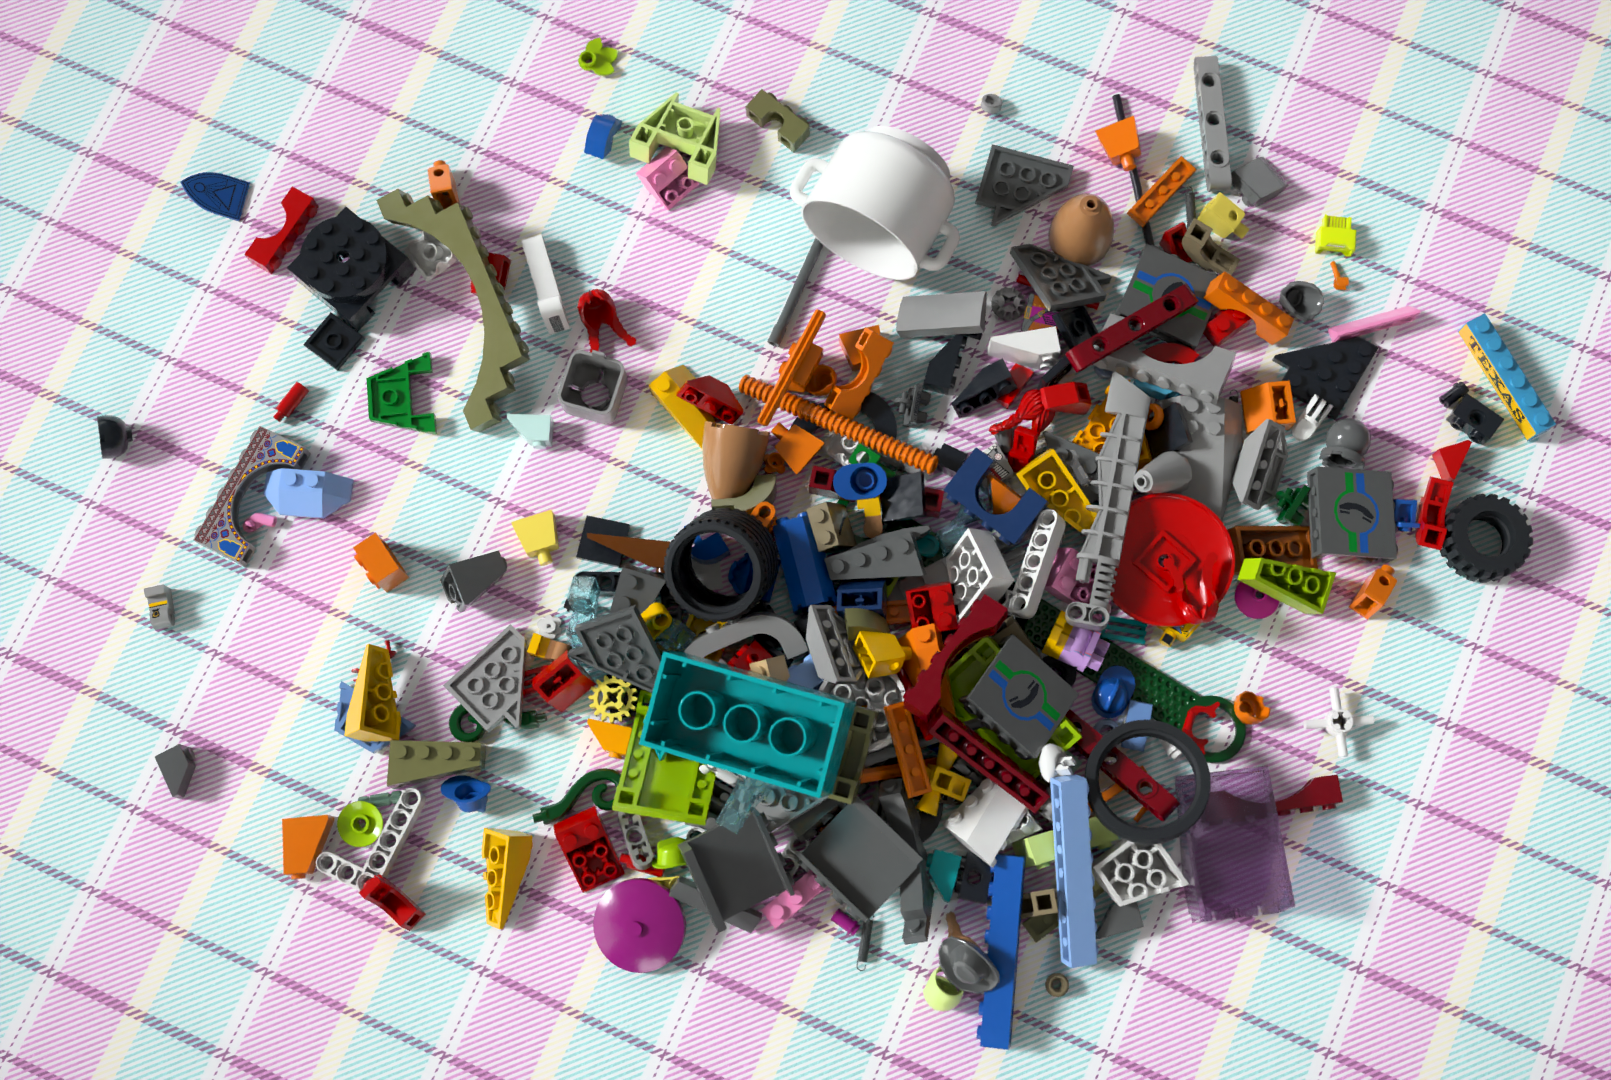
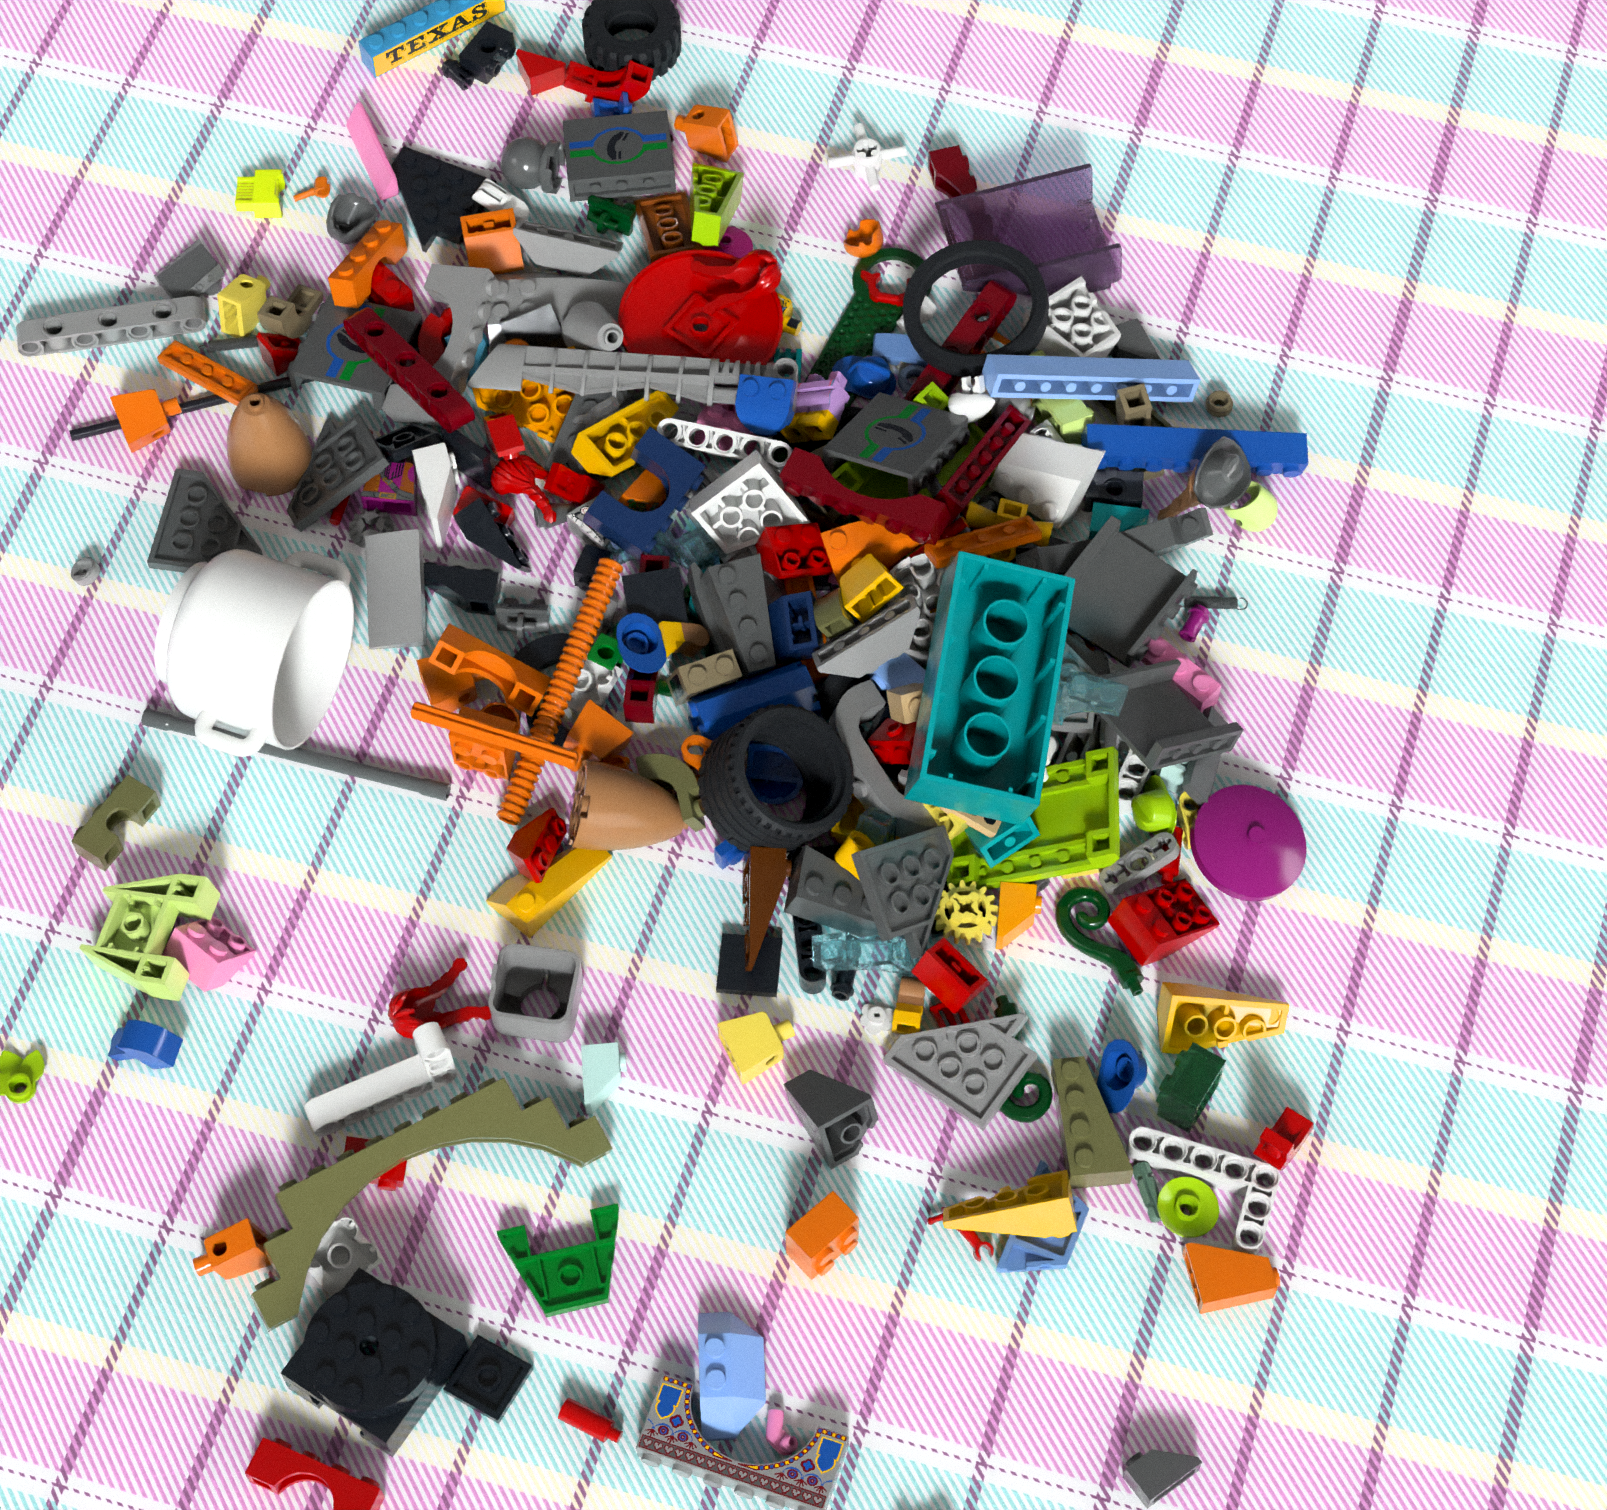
camera: 100 degrees left, 15 degrees down
(443, 840) = (1190, 1086): none -> clear green piece
(1068, 596) = (765, 403): none -> blue slope

